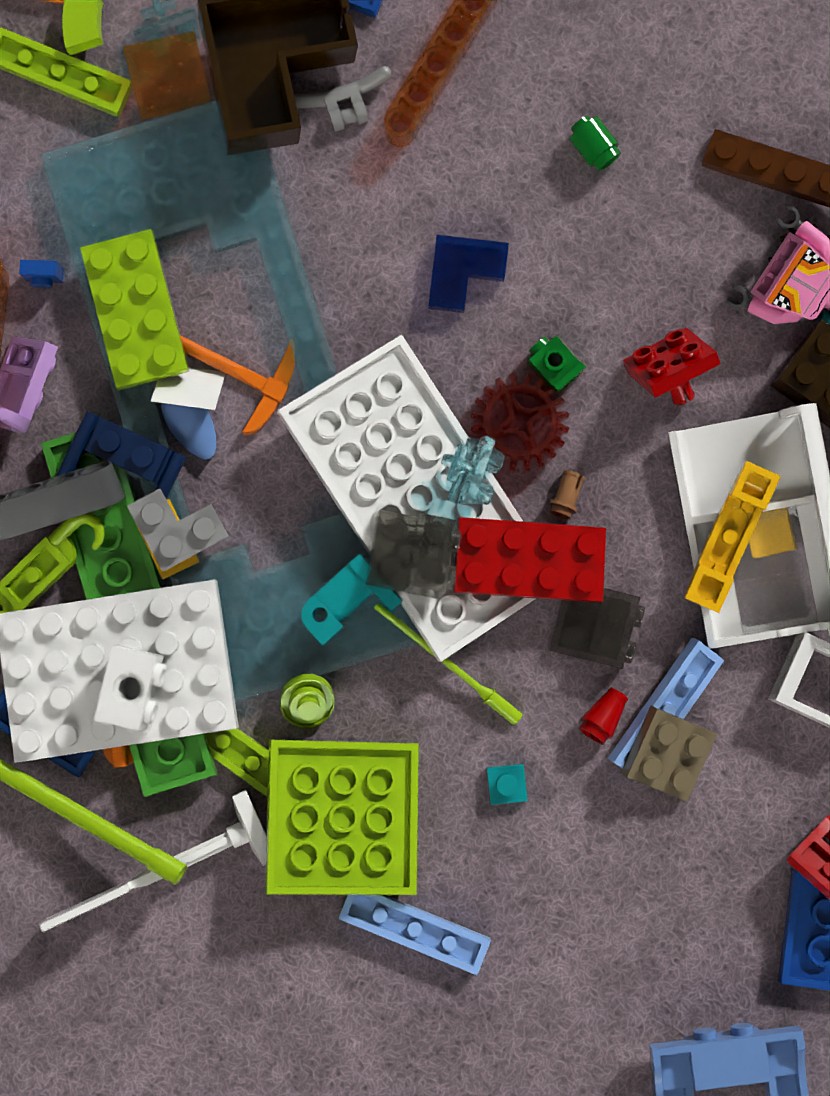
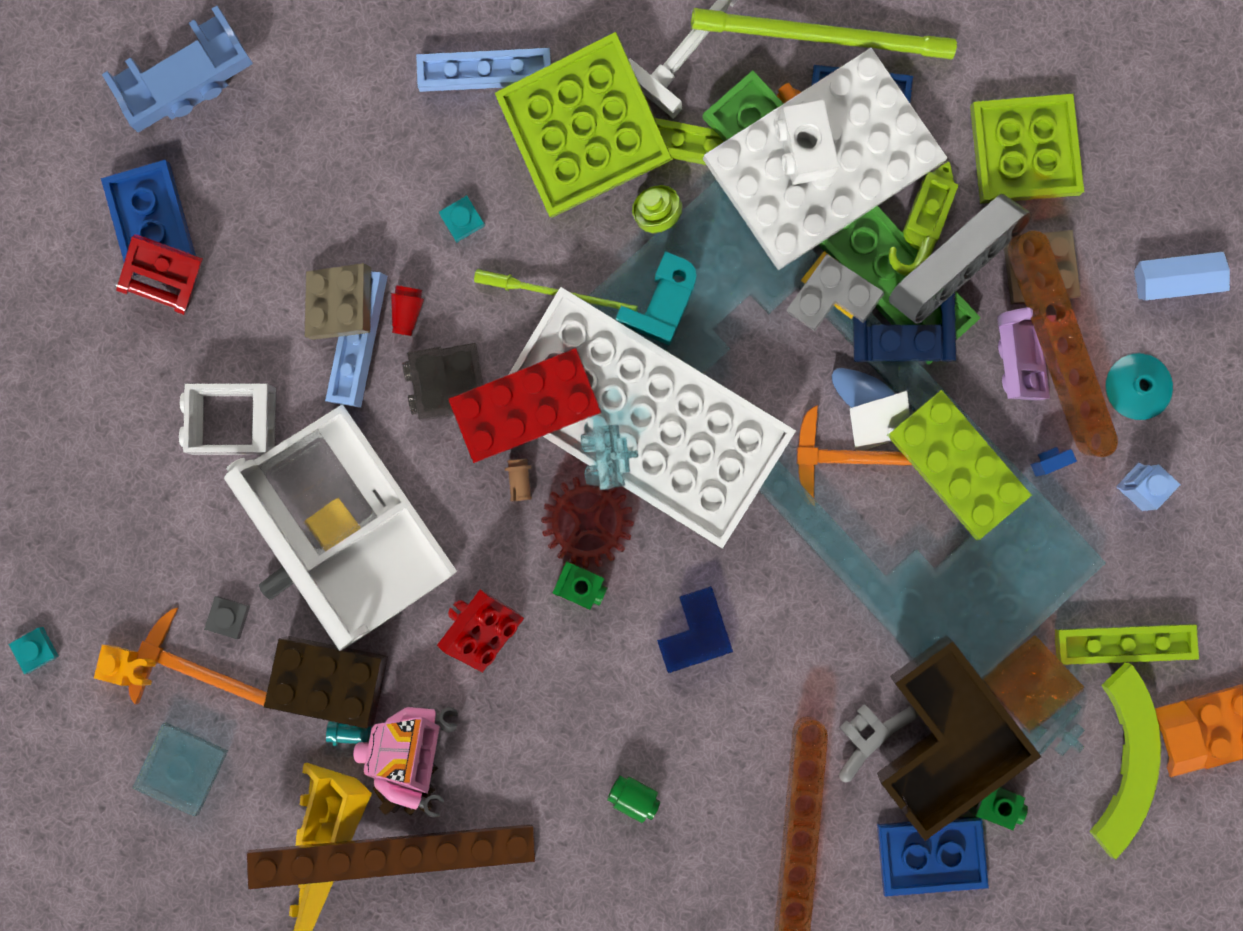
camera: 160 degrees right, 0 degrees up
(413, 553) = (625, 361): clear smoke plate -> none
(730, 536) = (364, 501): yellow slope -> none

